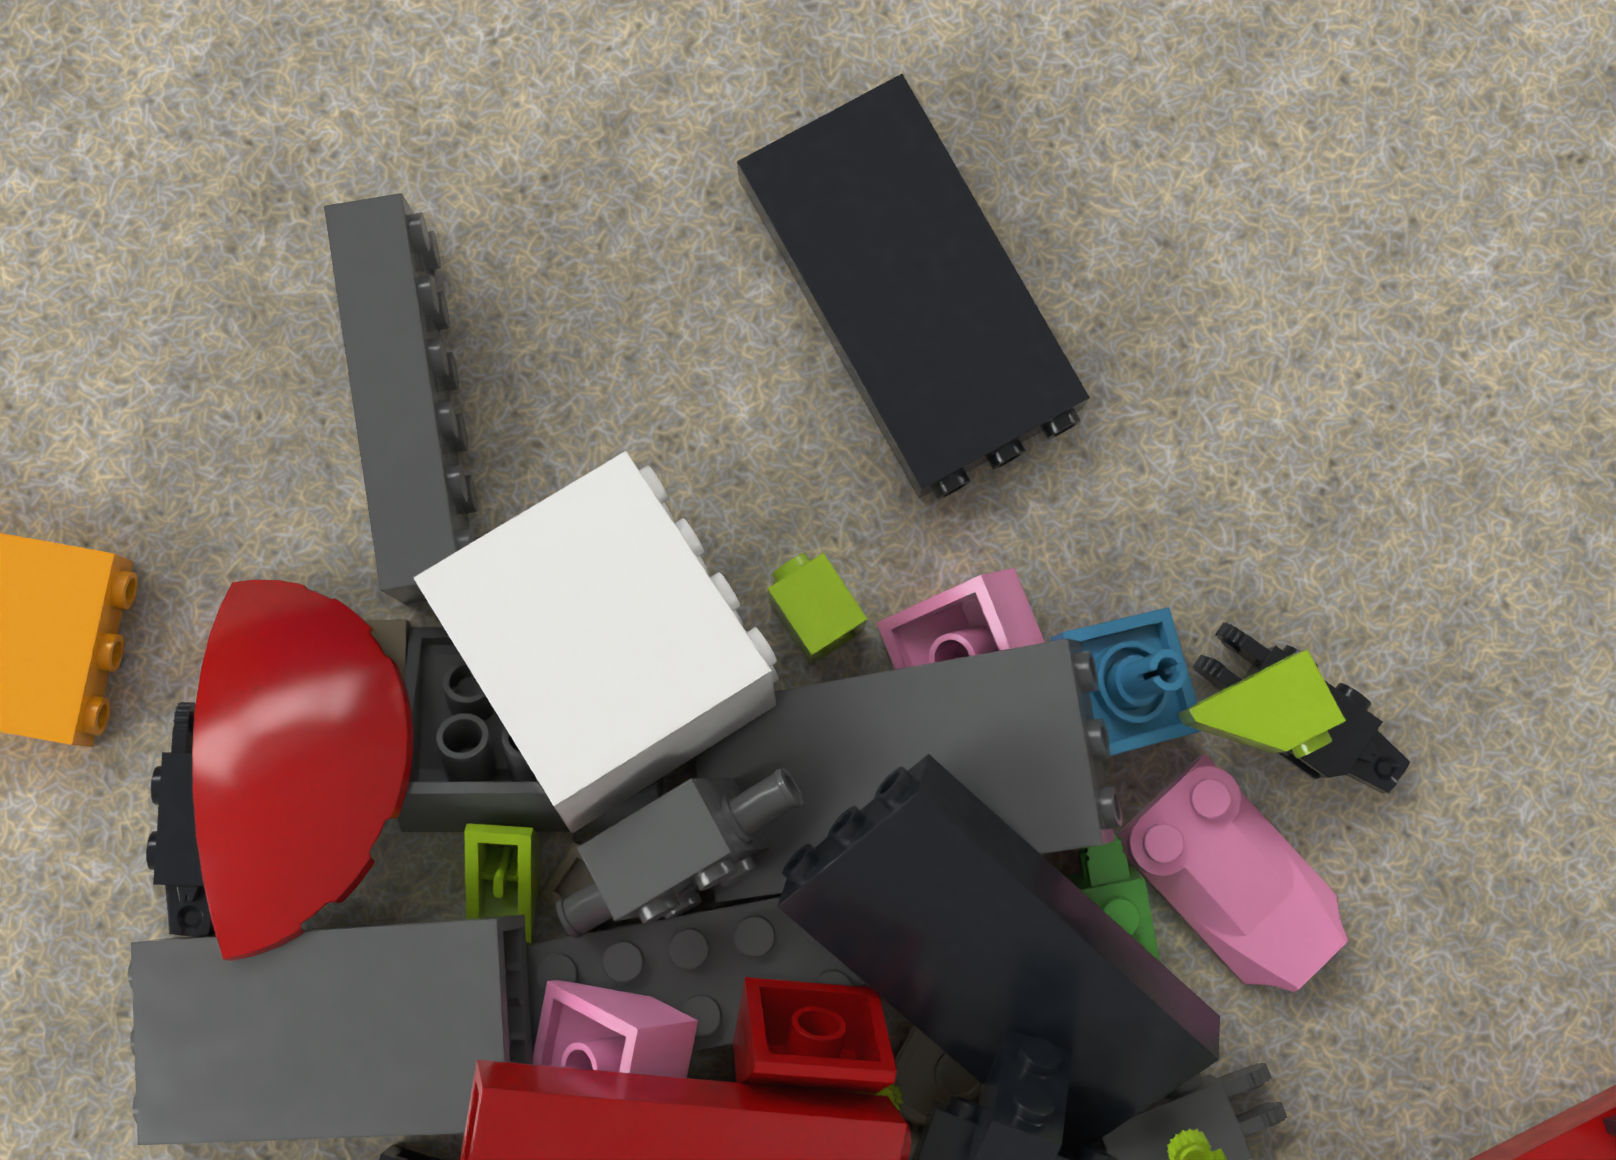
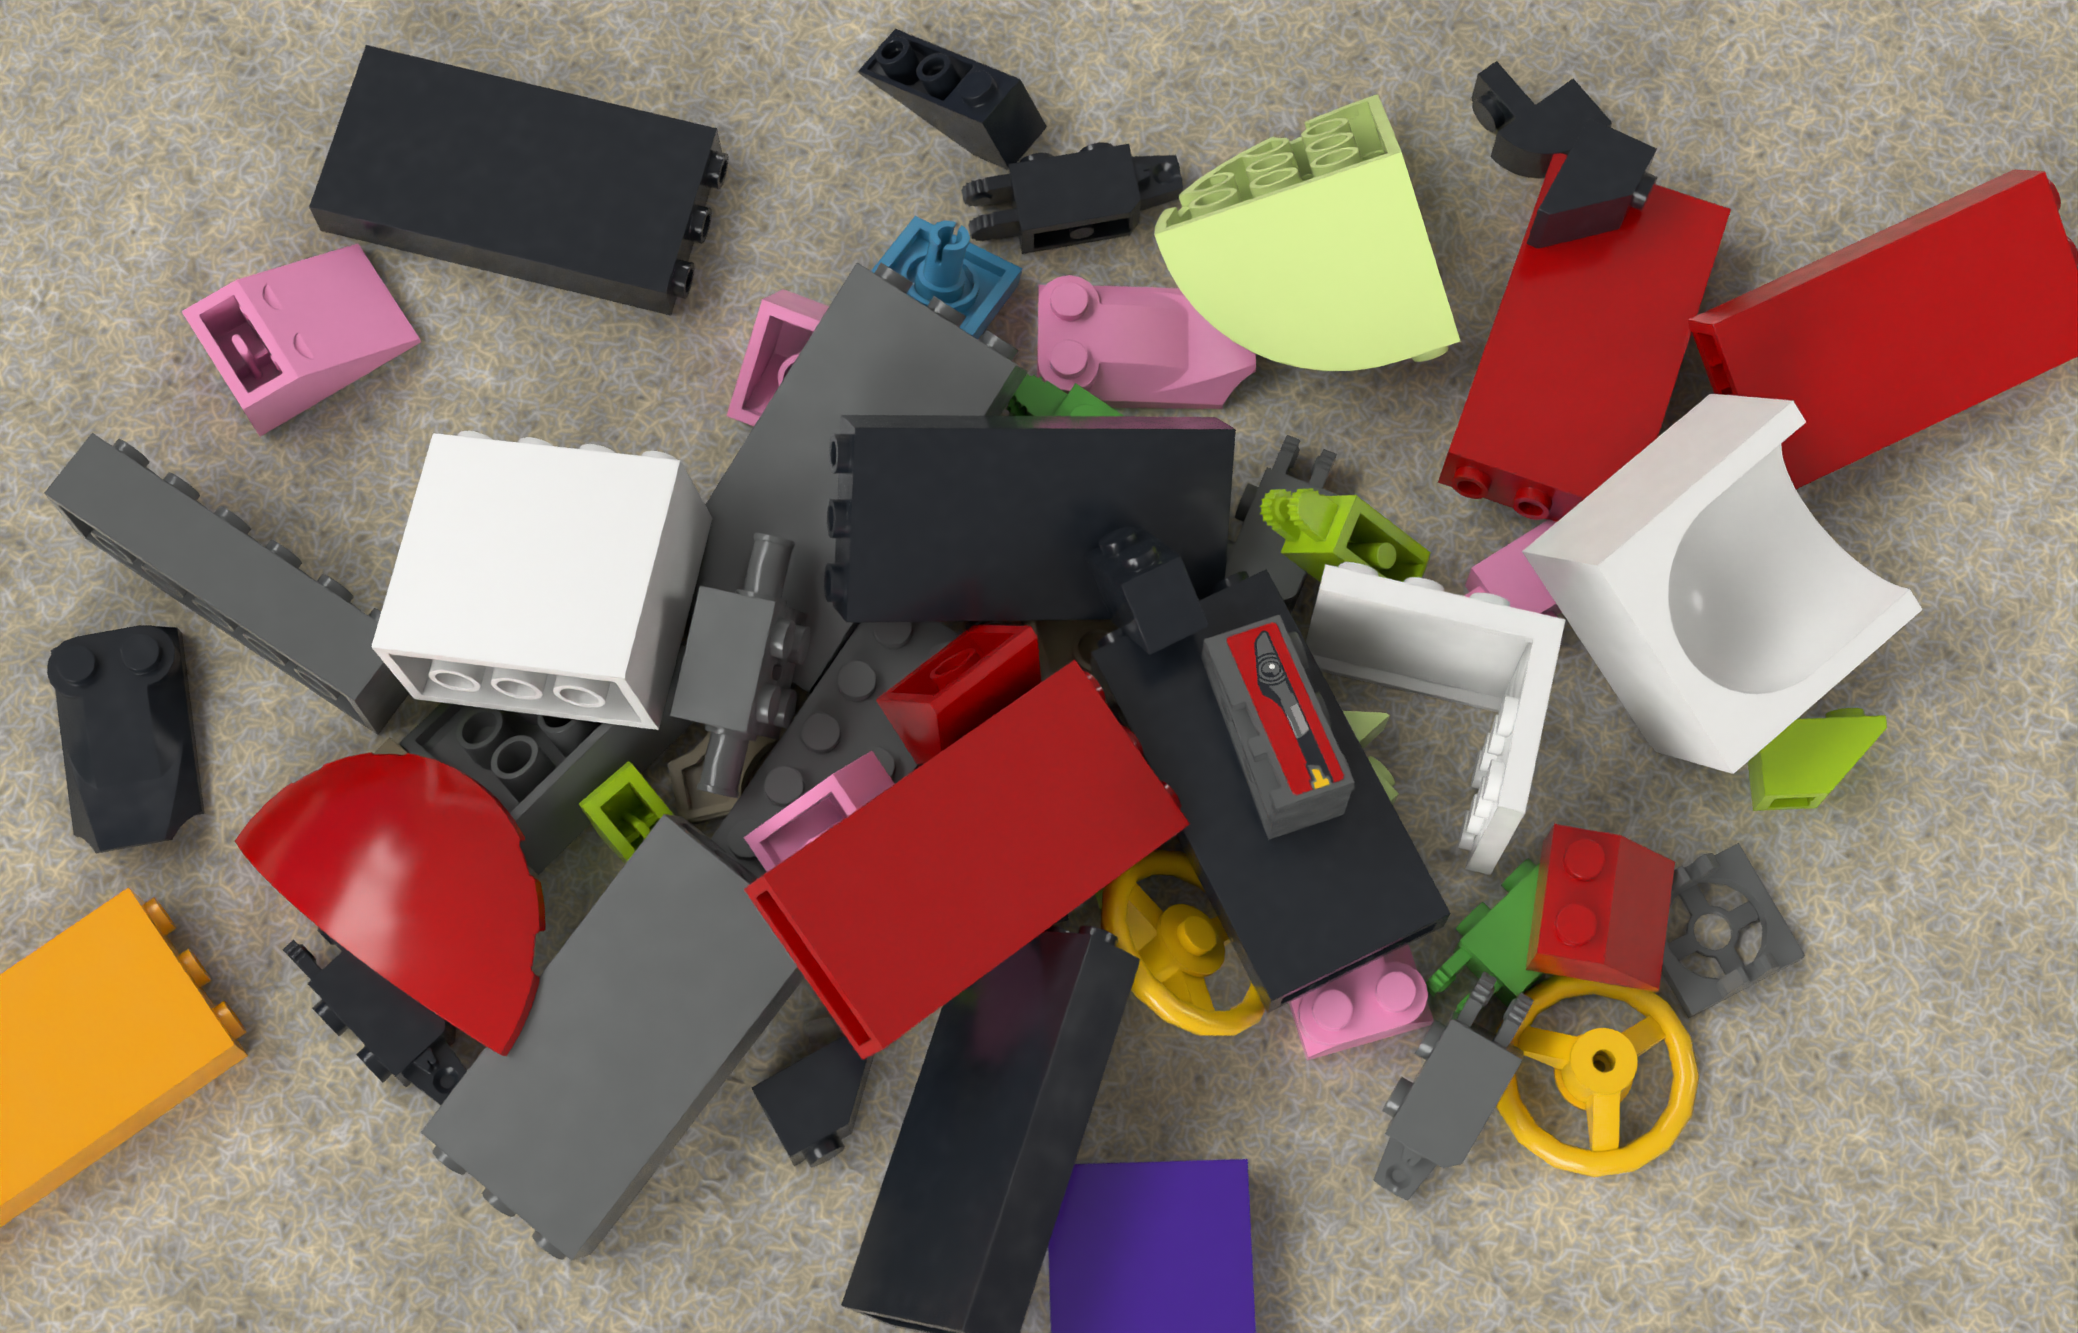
camera: 45 degrees left, 10 degrees down
(231, 435) = (127, 735): none -> black slope
(639, 249) = (300, 333): none -> bright pink slope
(815, 606) = (675, 423): lime brick -> none
(1272, 709) = (1043, 200): lime slope -> none
(1295, 544) = (958, 96): none -> black slope
(1442, 959) = (1313, 249): none -> yellowish green brick

